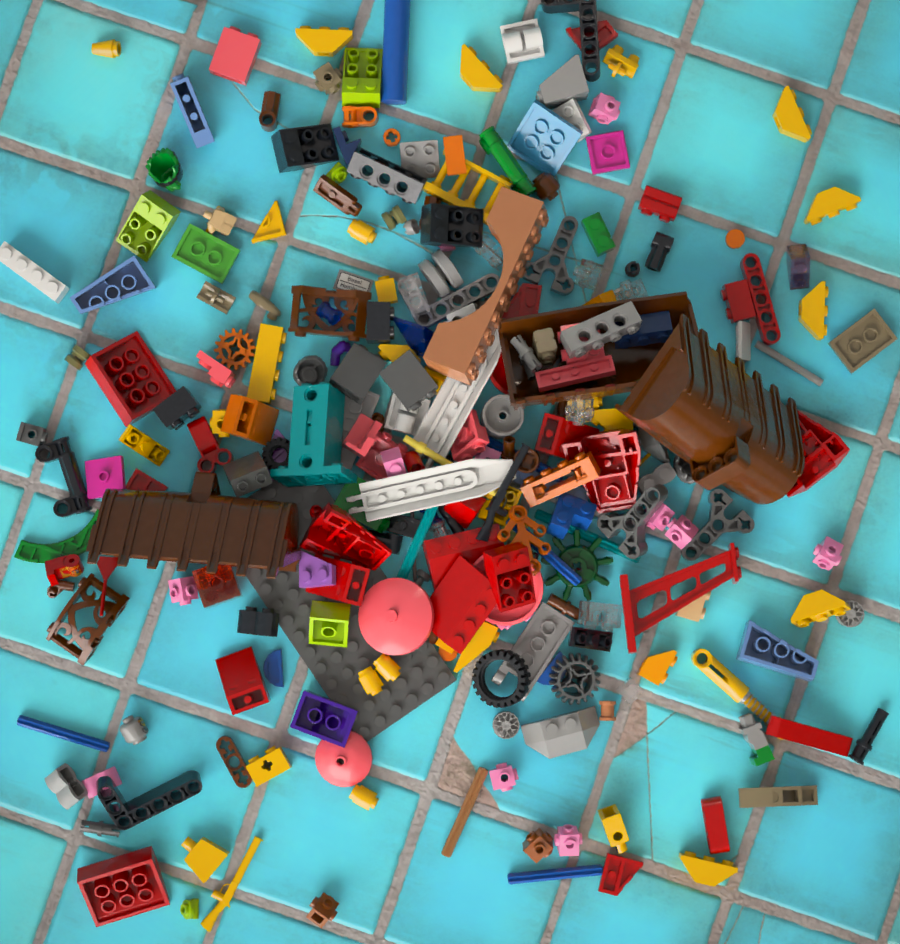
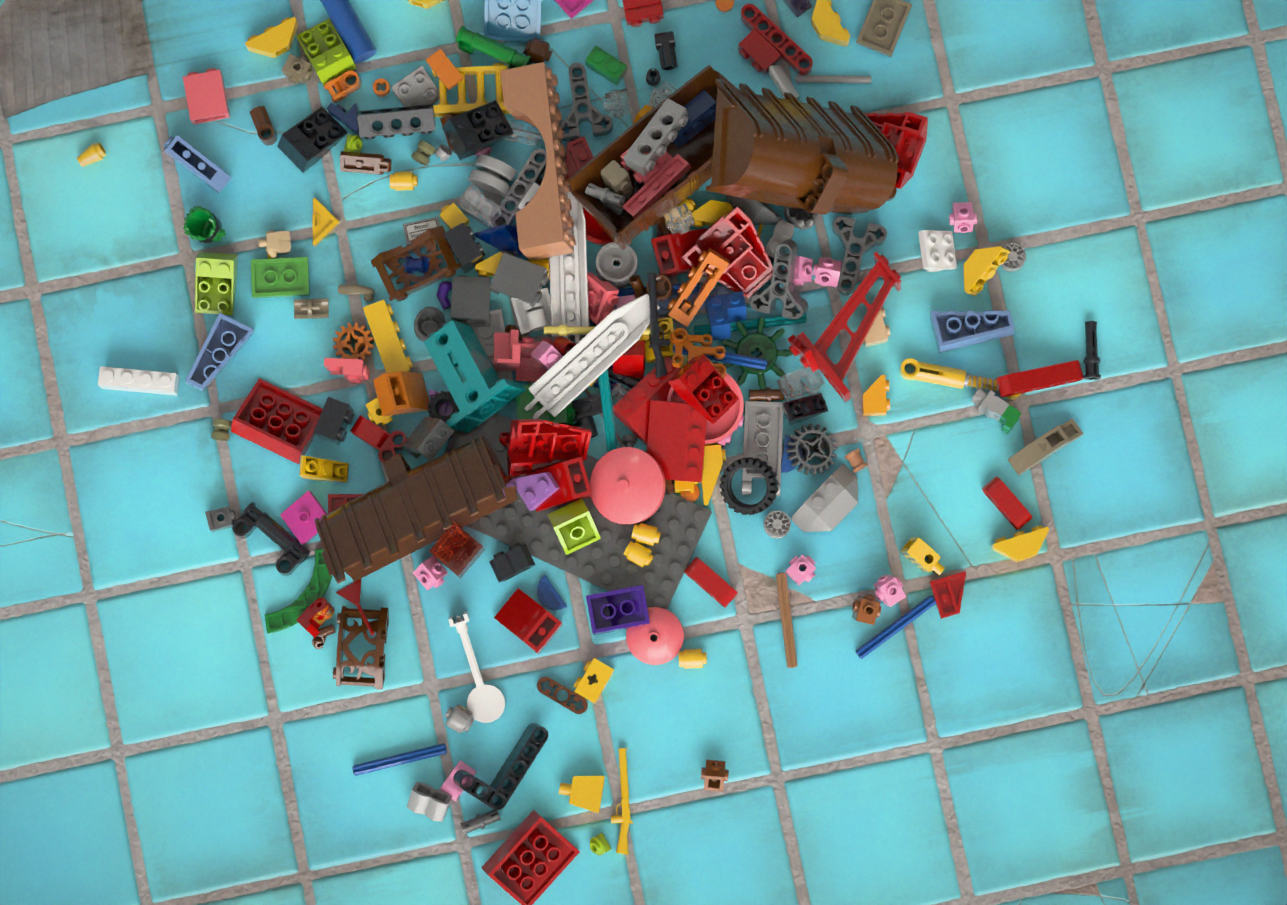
camera: 25 degrees left, 5 degrees down
(166, 727) = (485, 700): none -> white piece
(419, 740) = (710, 582): none -> red beam
(617, 598) = (805, 354): none -> red wing
(788, 569) = (937, 250): none -> white plate

